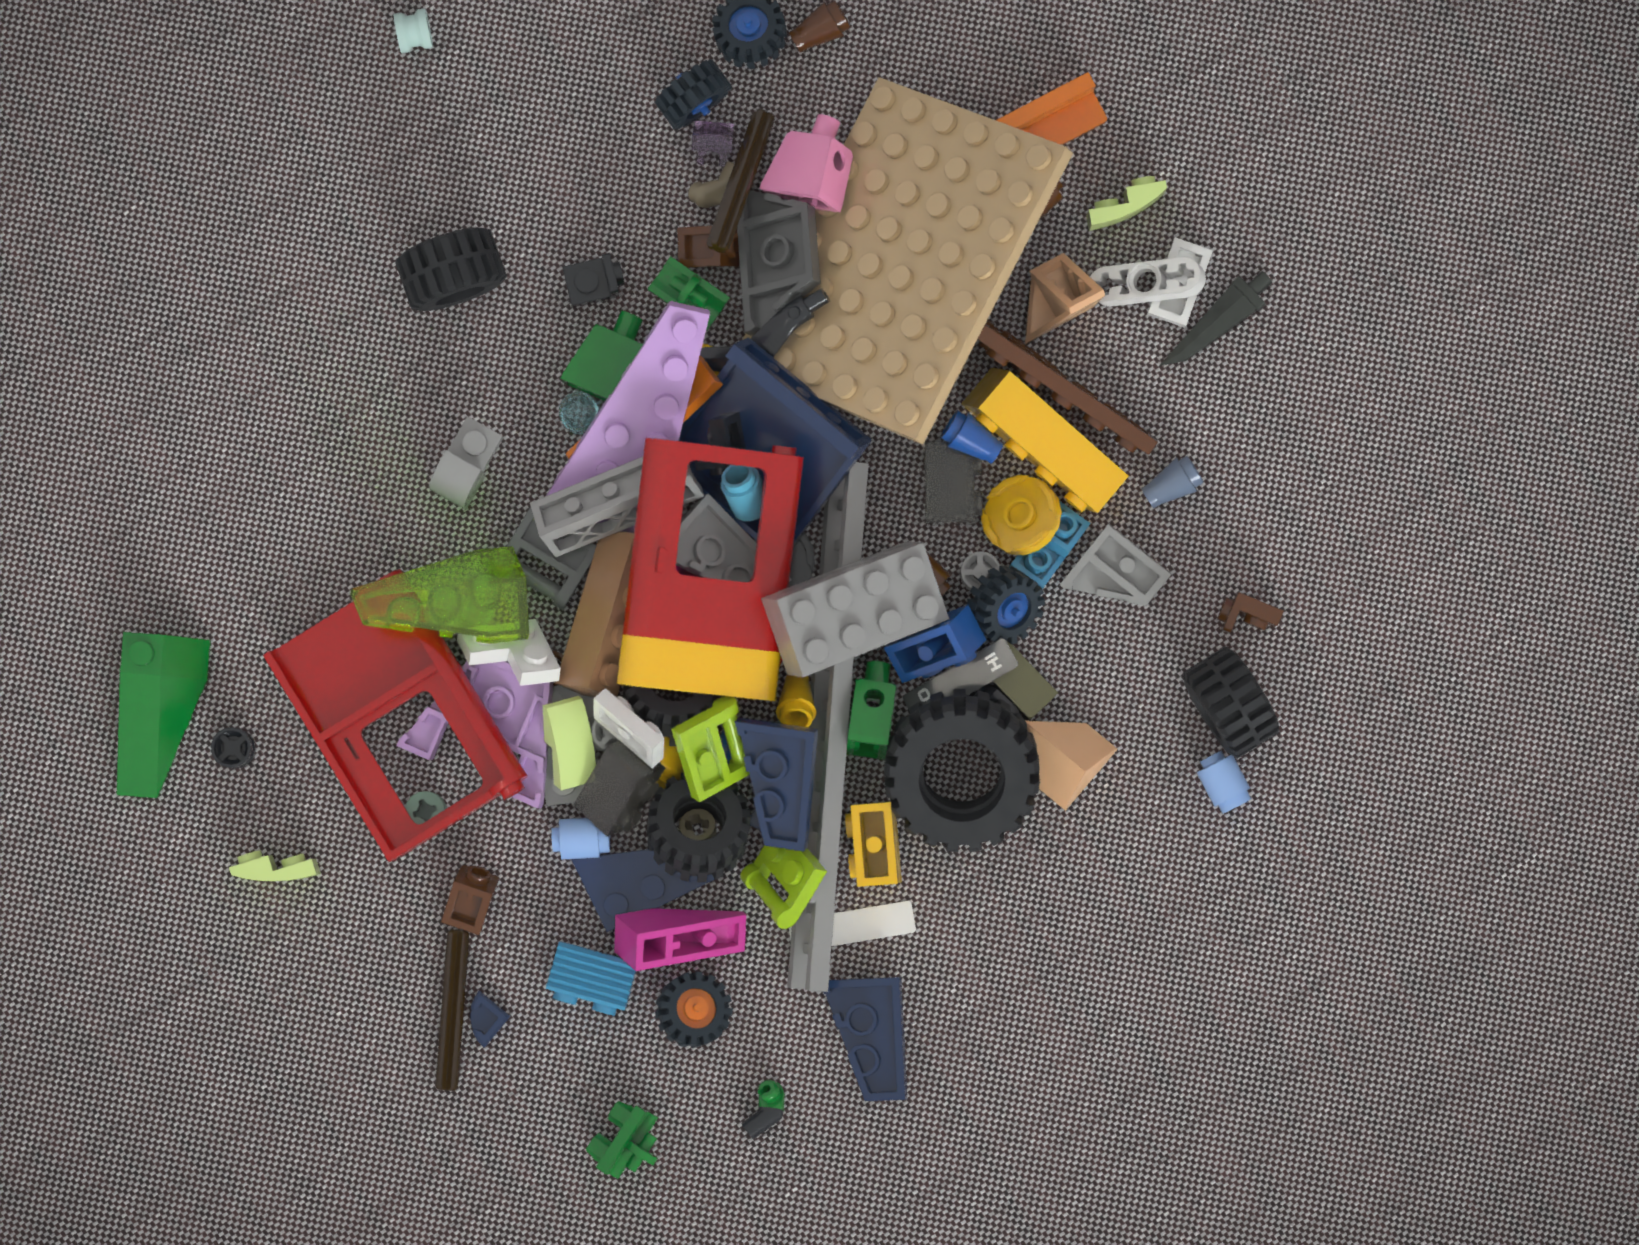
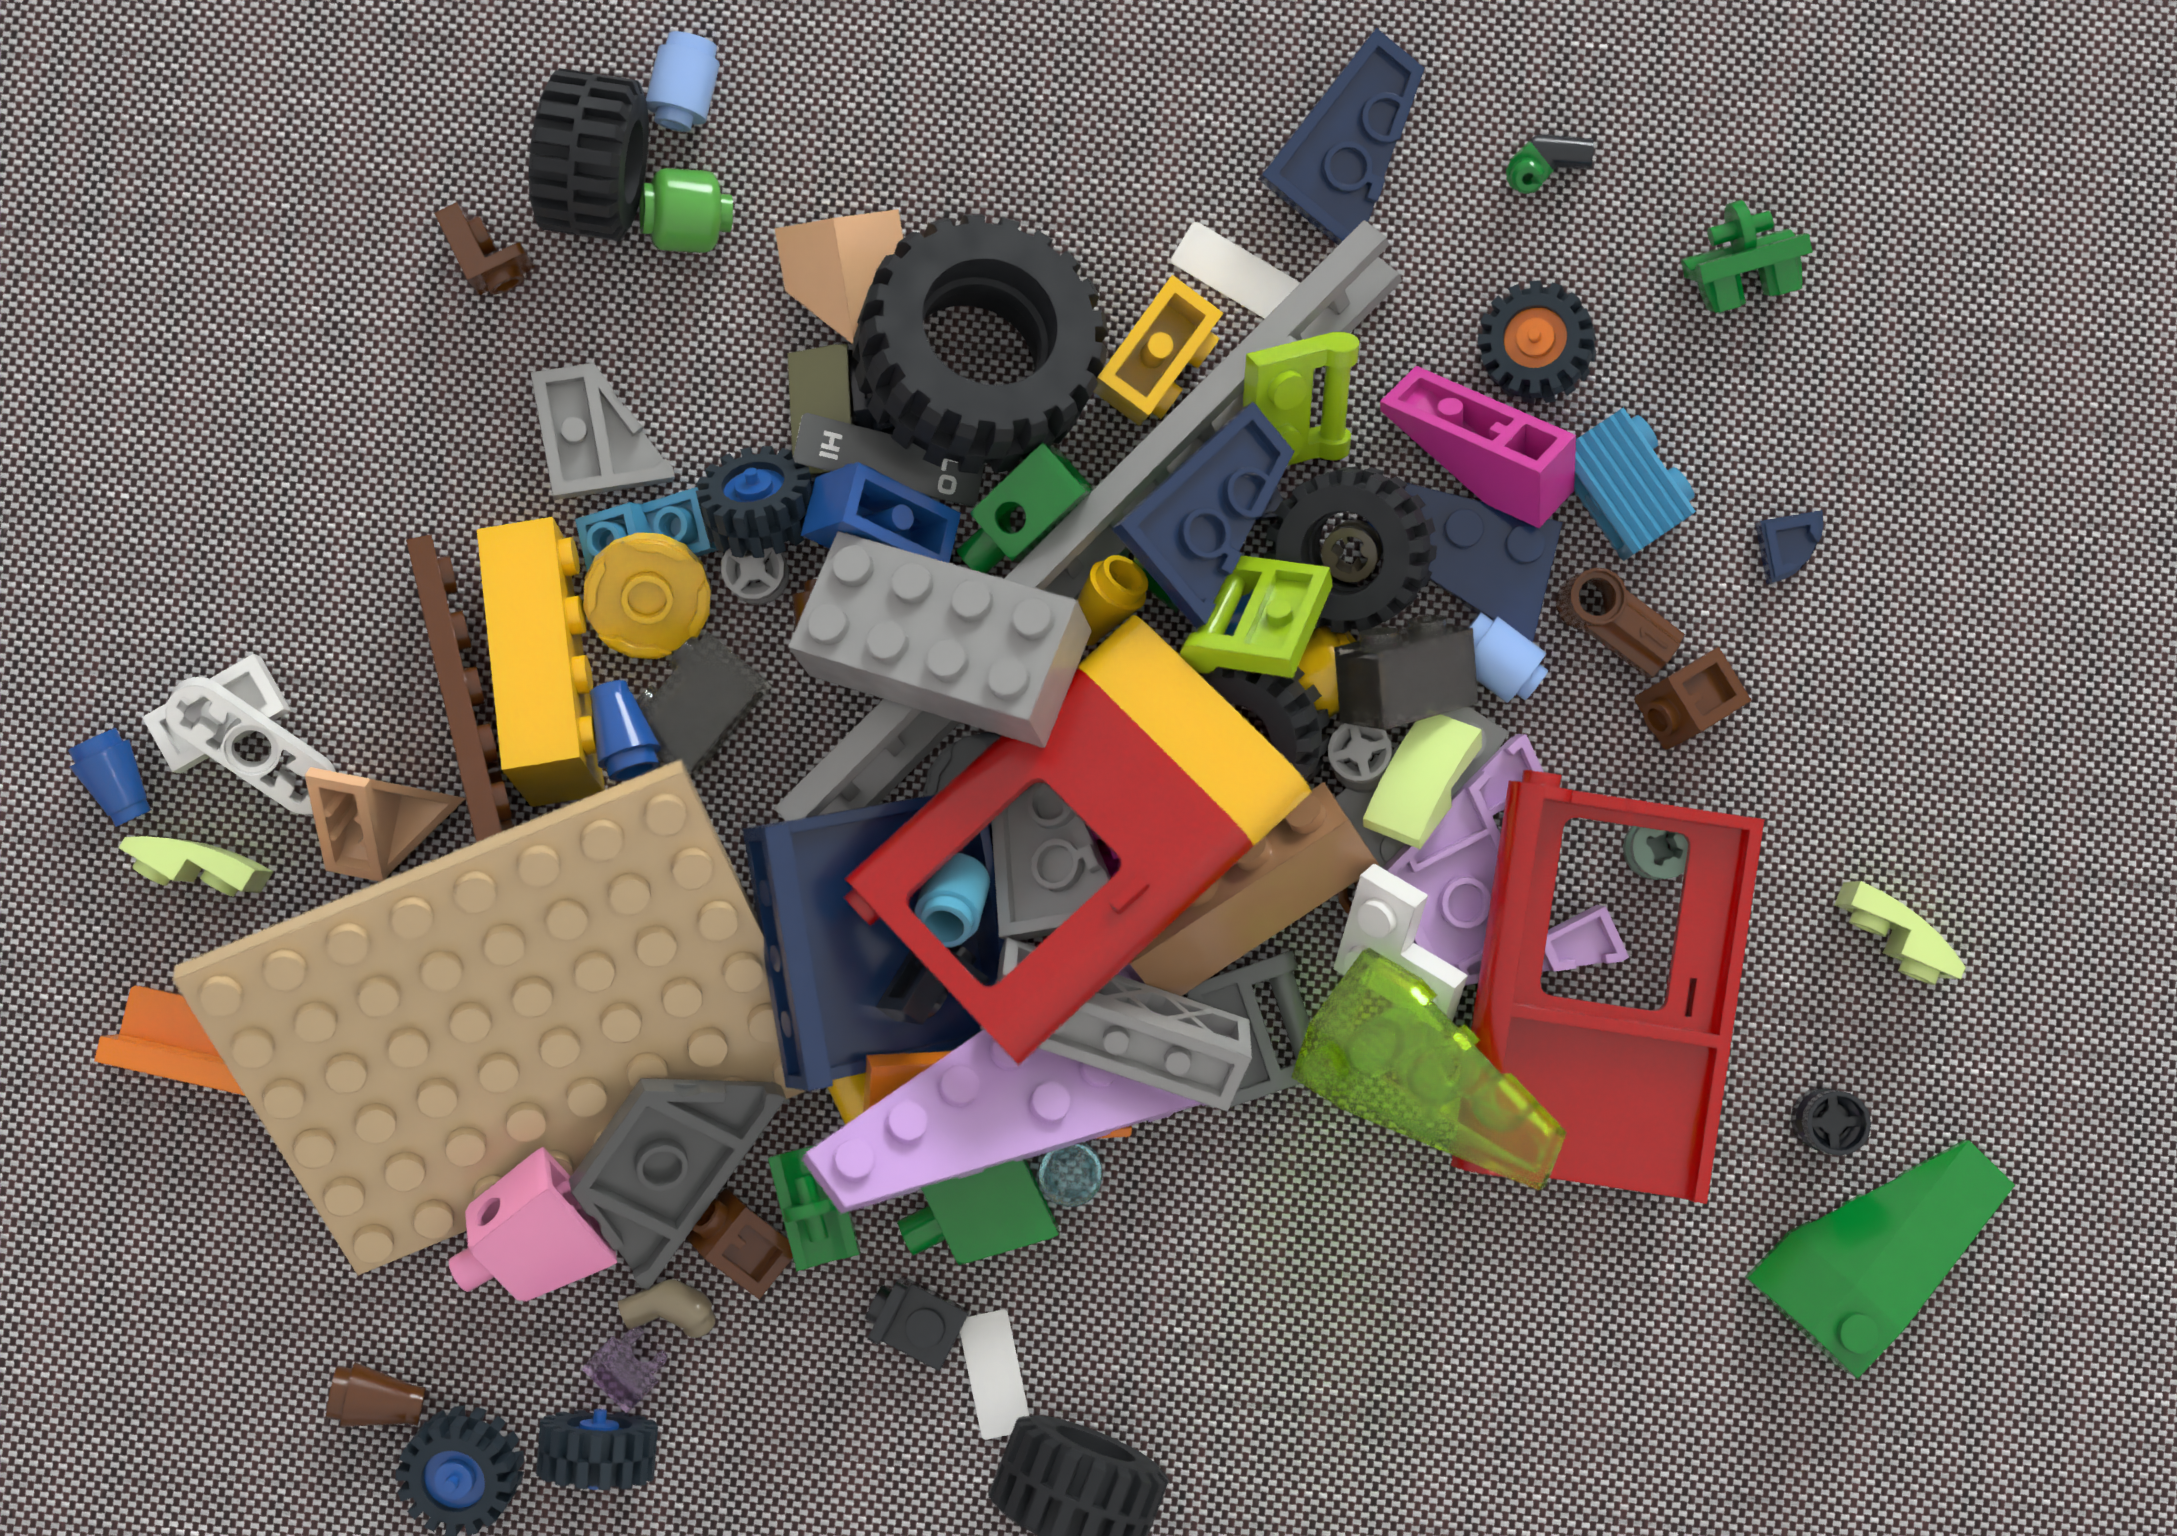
camera: 140 degrees left, 0 degrees up
(452, 1010) = (1822, 586): dark brown axle -> none
(464, 463) = (1264, 1230): light grey brick -> none
(534, 906) = (1624, 623): none -> reddish brown piece
(535, 288) = (993, 1373): none -> white sticker
(621, 721) = (1341, 750): white plate -> none
(740, 181) = (632, 1290): dark brown axle -> none
(776, 330) = (746, 1066): black piece -> none
(1167, 718) = (684, 210): none -> bright green head
(1173, 482) = (432, 482): sand blue cone -> none
(1205, 210) = (111, 775): none -> blue cone
(1229, 310) = (185, 632): pearl dark grey bar -> none

